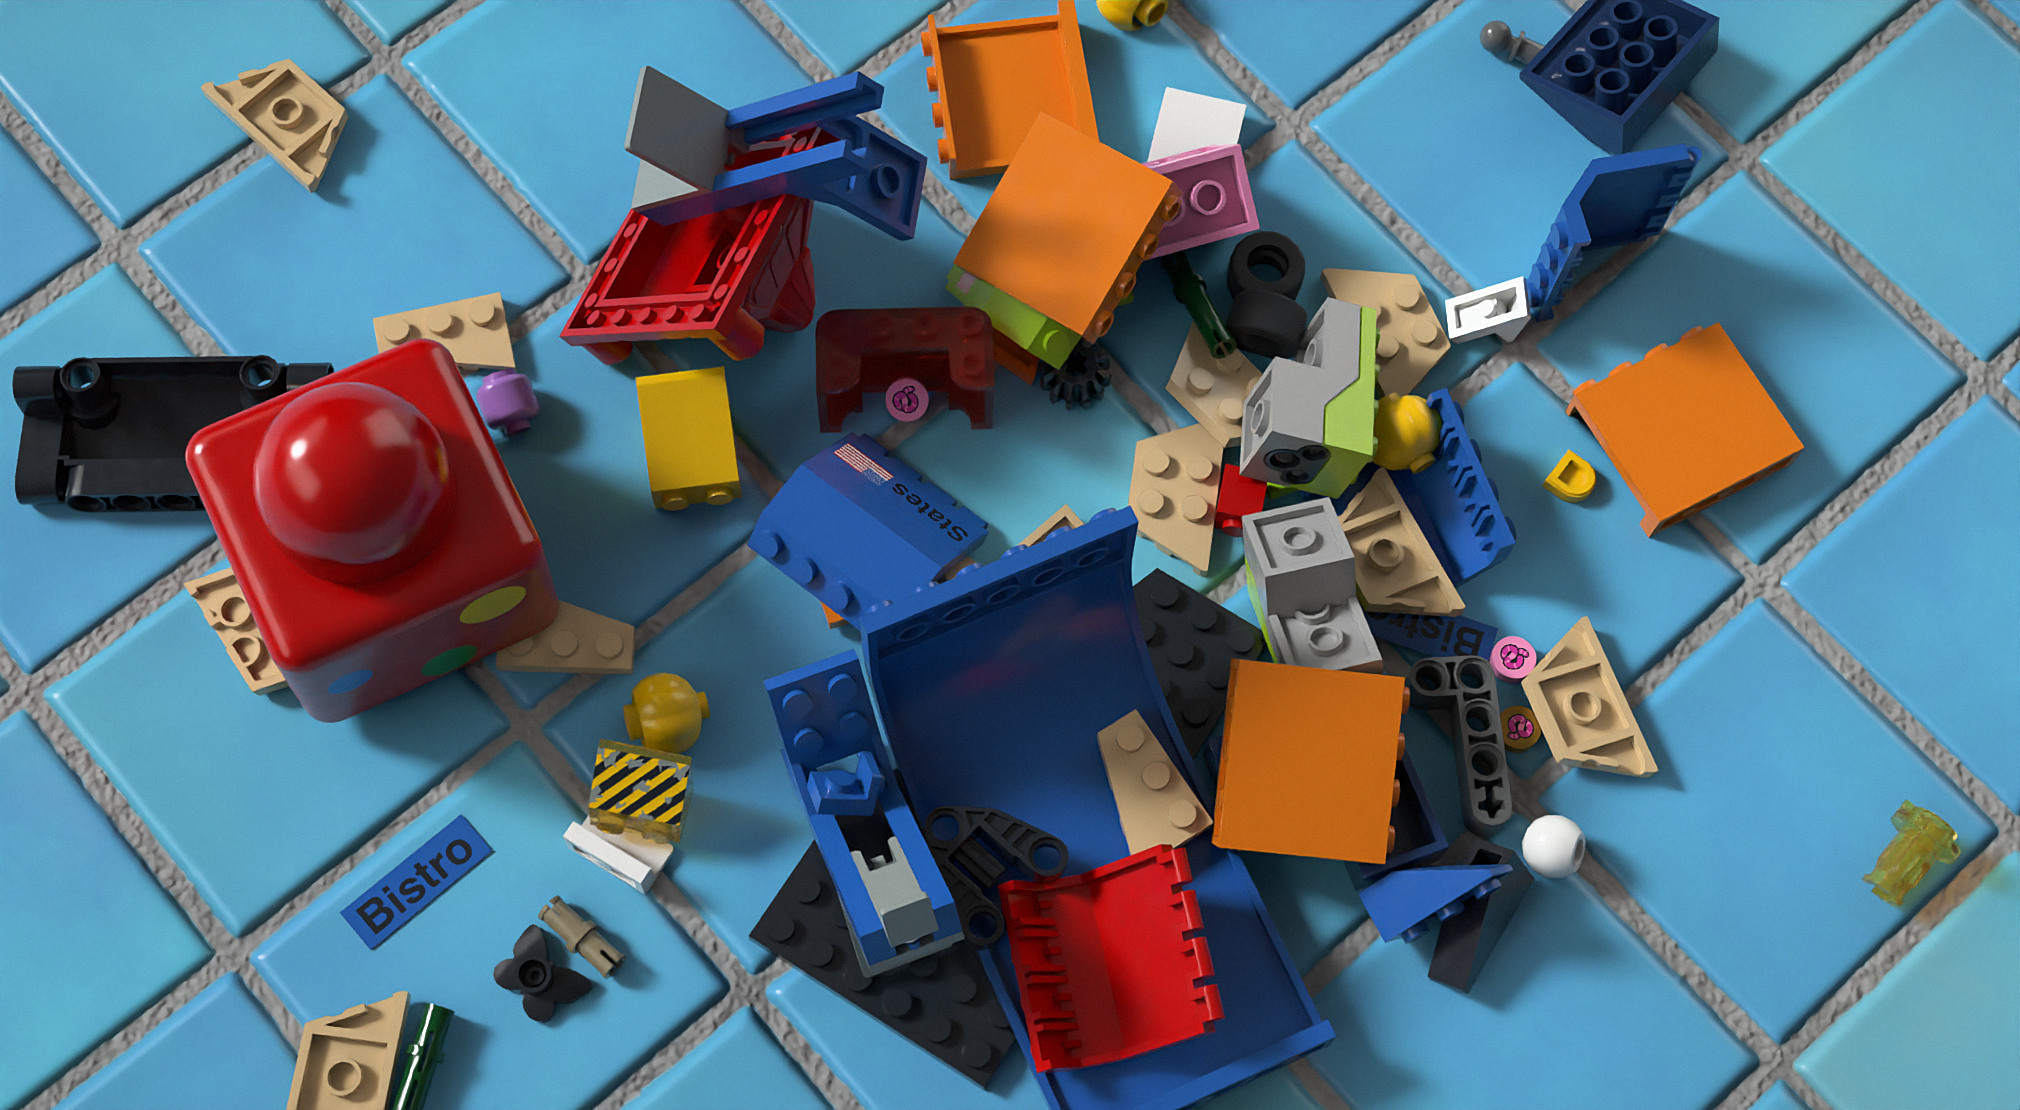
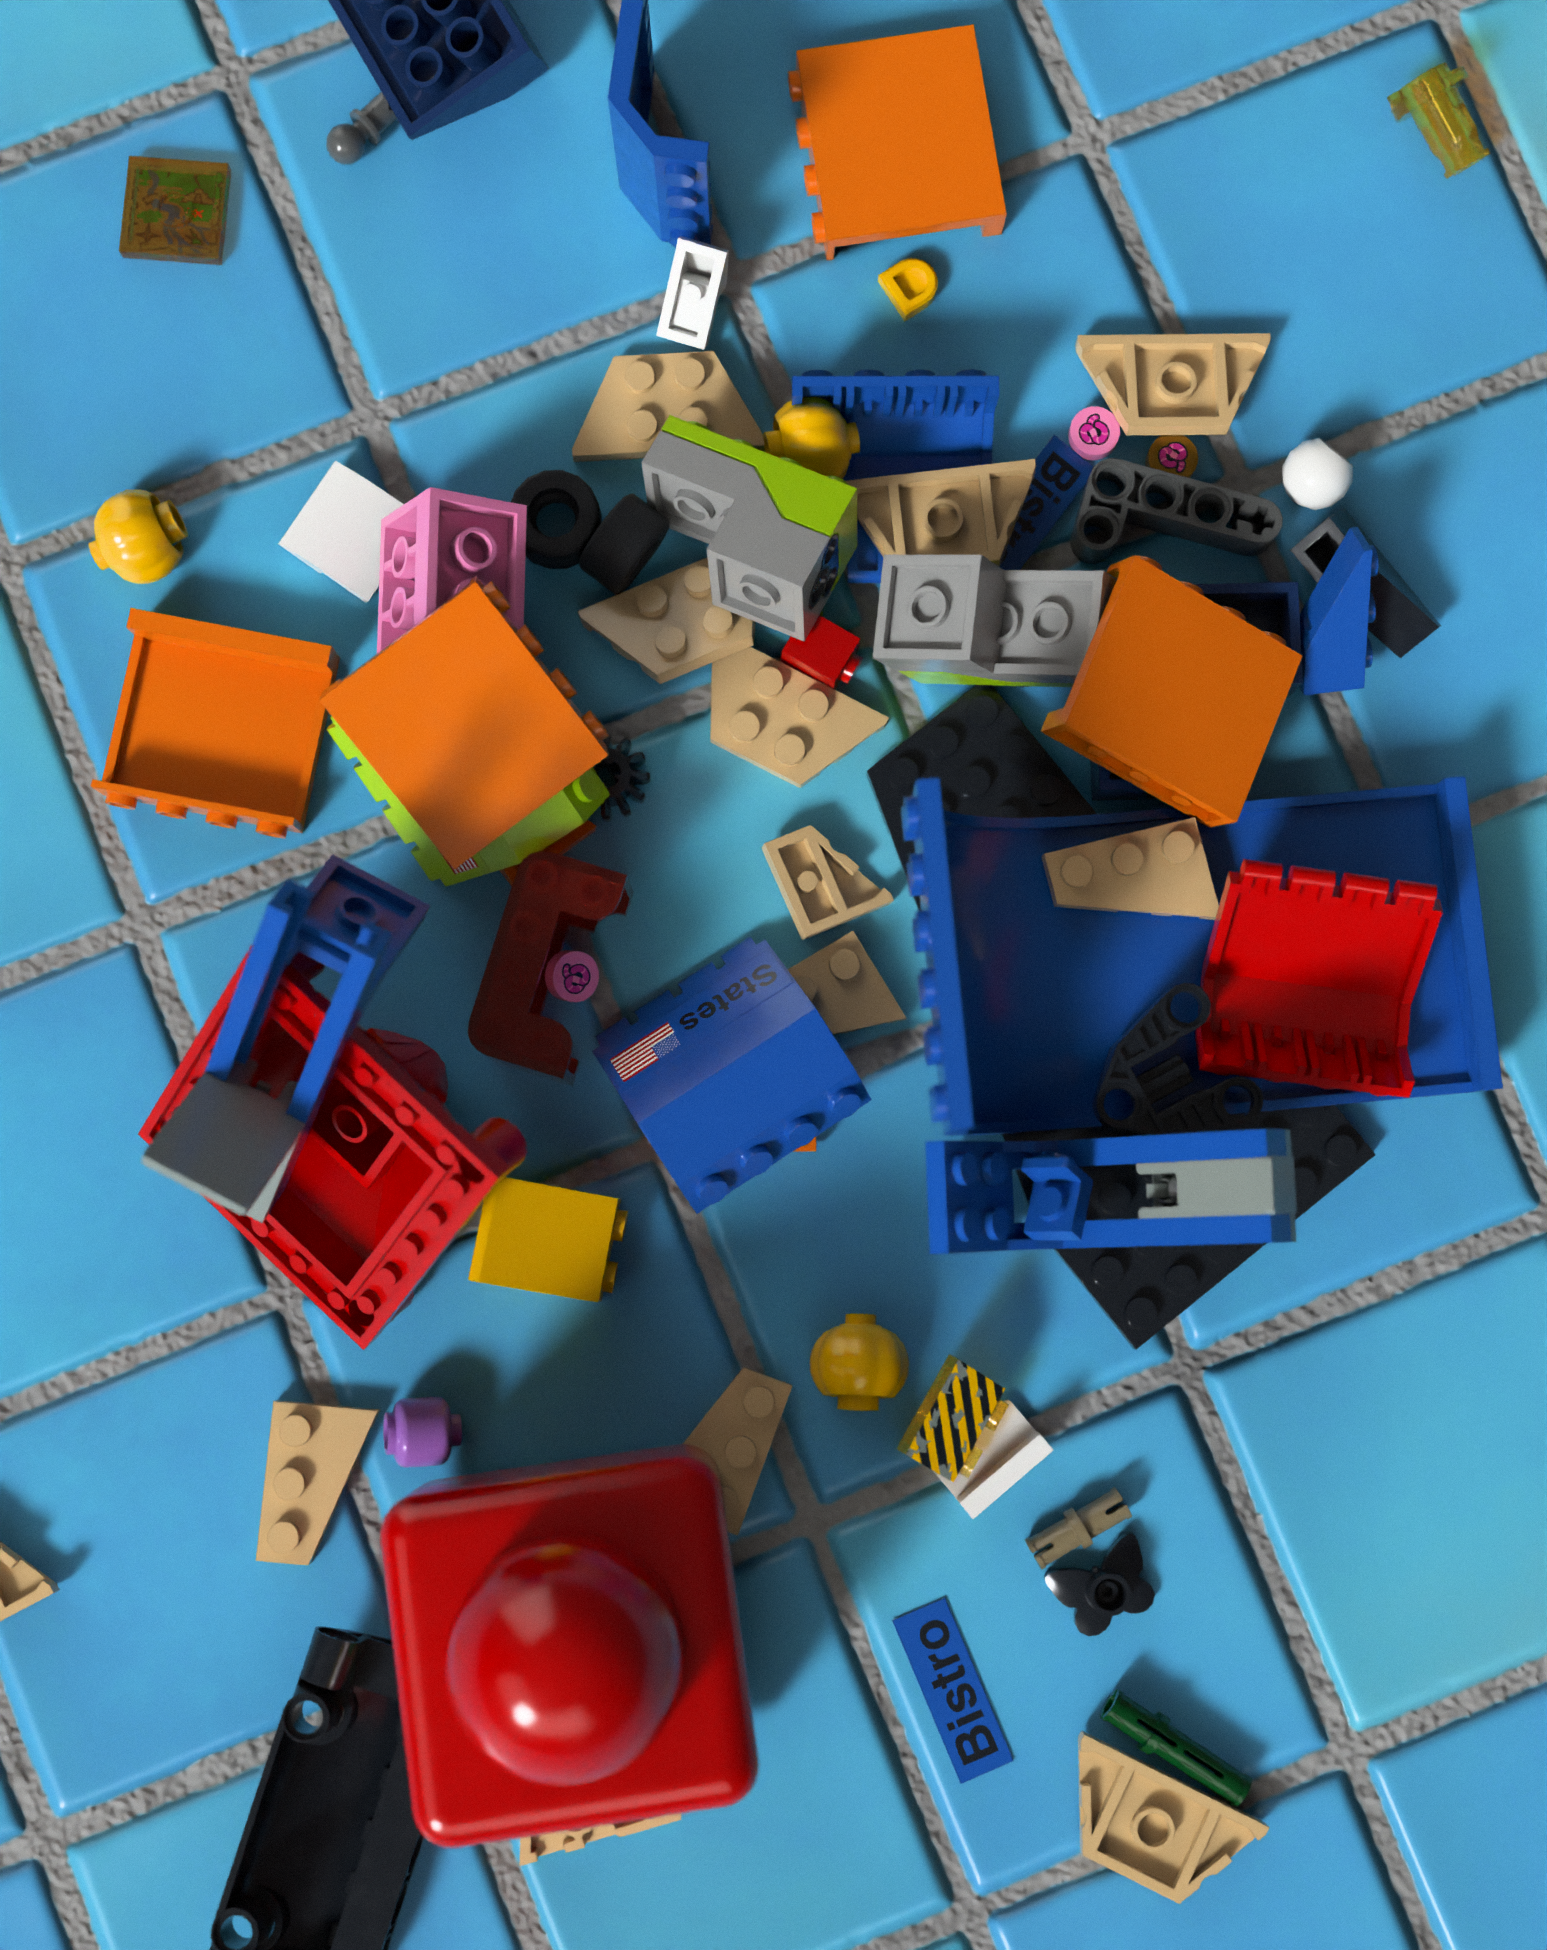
camera: 70 degrees left, 15 degrees up
(1191, 291) = (570, 609): dark green pin -> none

